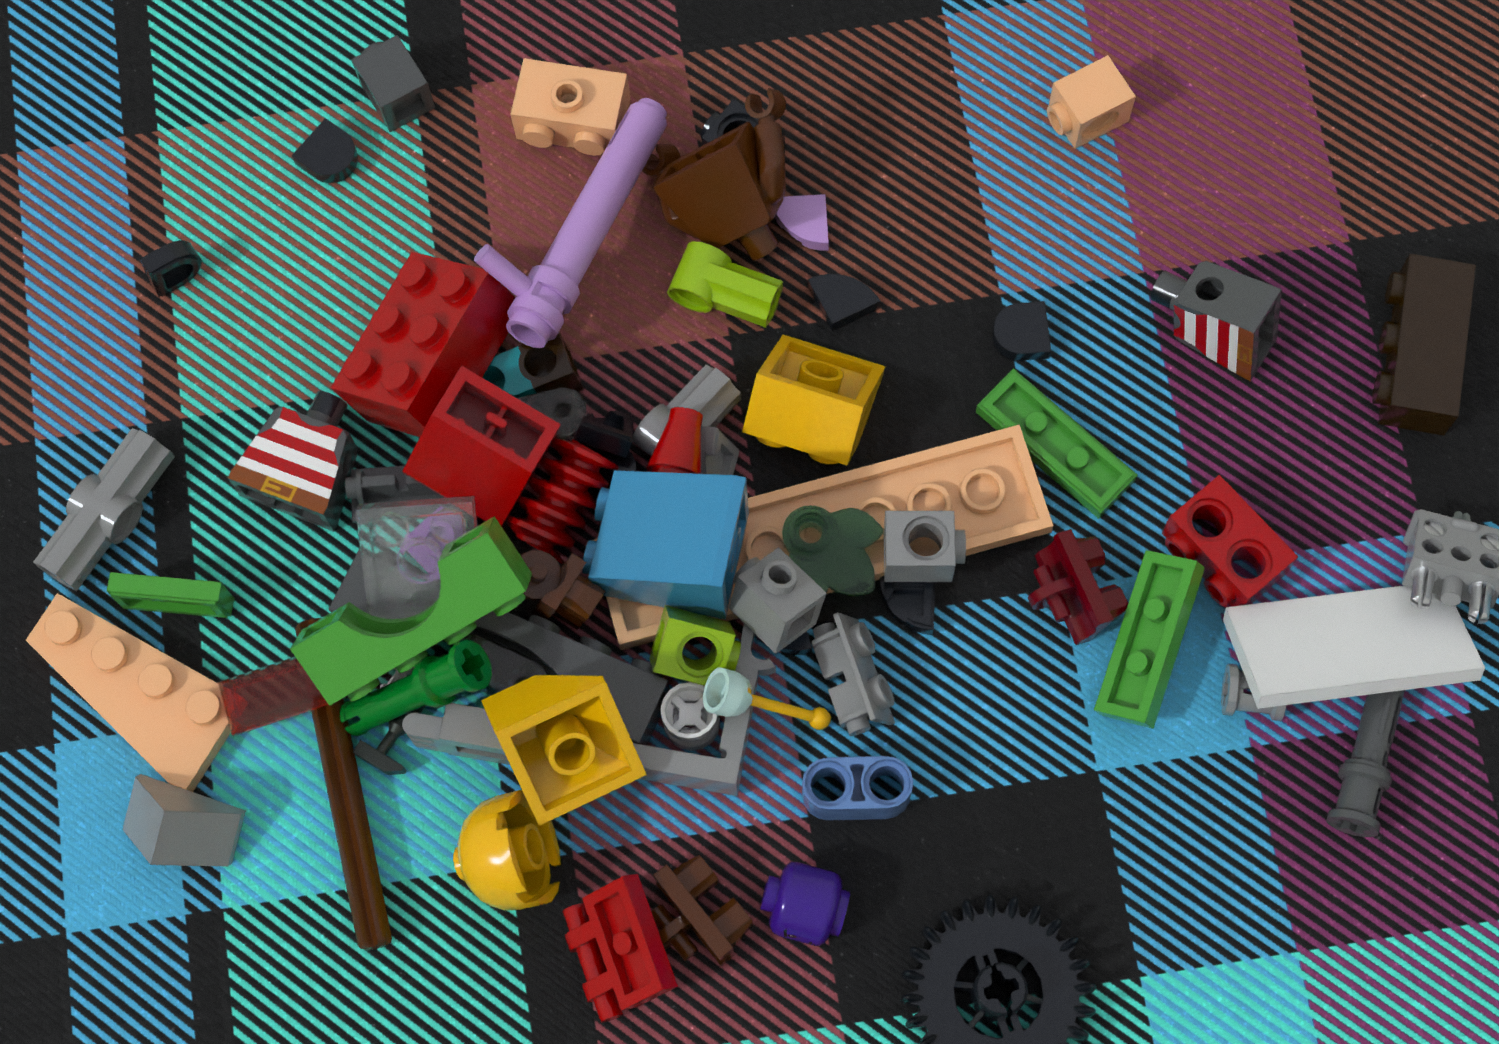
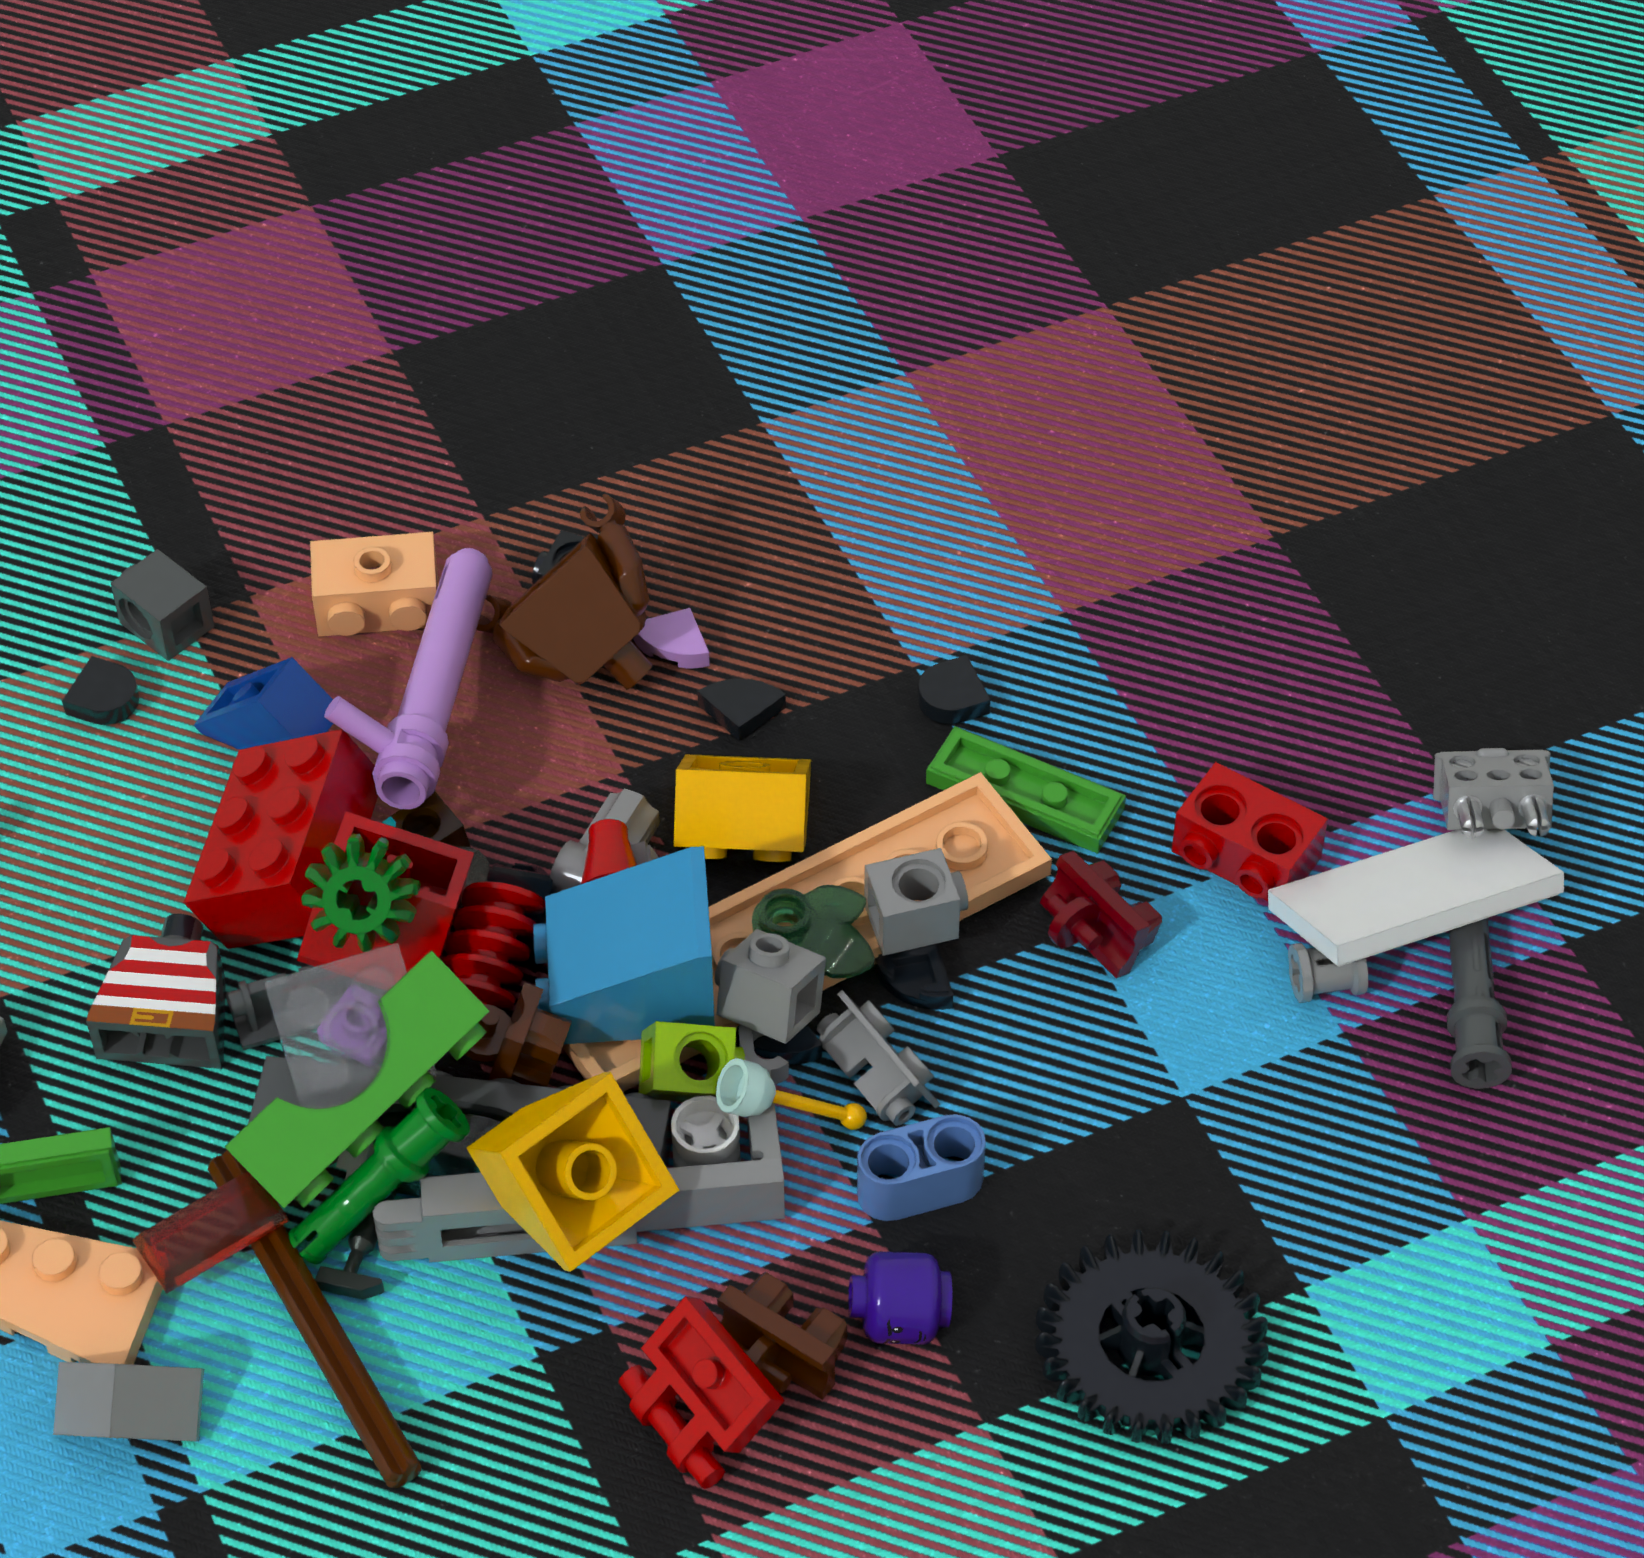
camera: 20 degrees left, 20 degrees down
(452, 214) = (267, 707): none -> blue slope
(452, 449) = (345, 909): none -> green gear
(507, 854) = (534, 1328): yellow cylinder -> none
(711, 280) = (587, 715): lime piece -> none
(1090, 102) = (952, 461): light nougat brick -> none
(1149, 639) = (1195, 942): bright green plate -> none
(1222, 315) = (1165, 619): dark grey torso -> none
(1424, 344) = (1388, 605): dark brown brick -> none

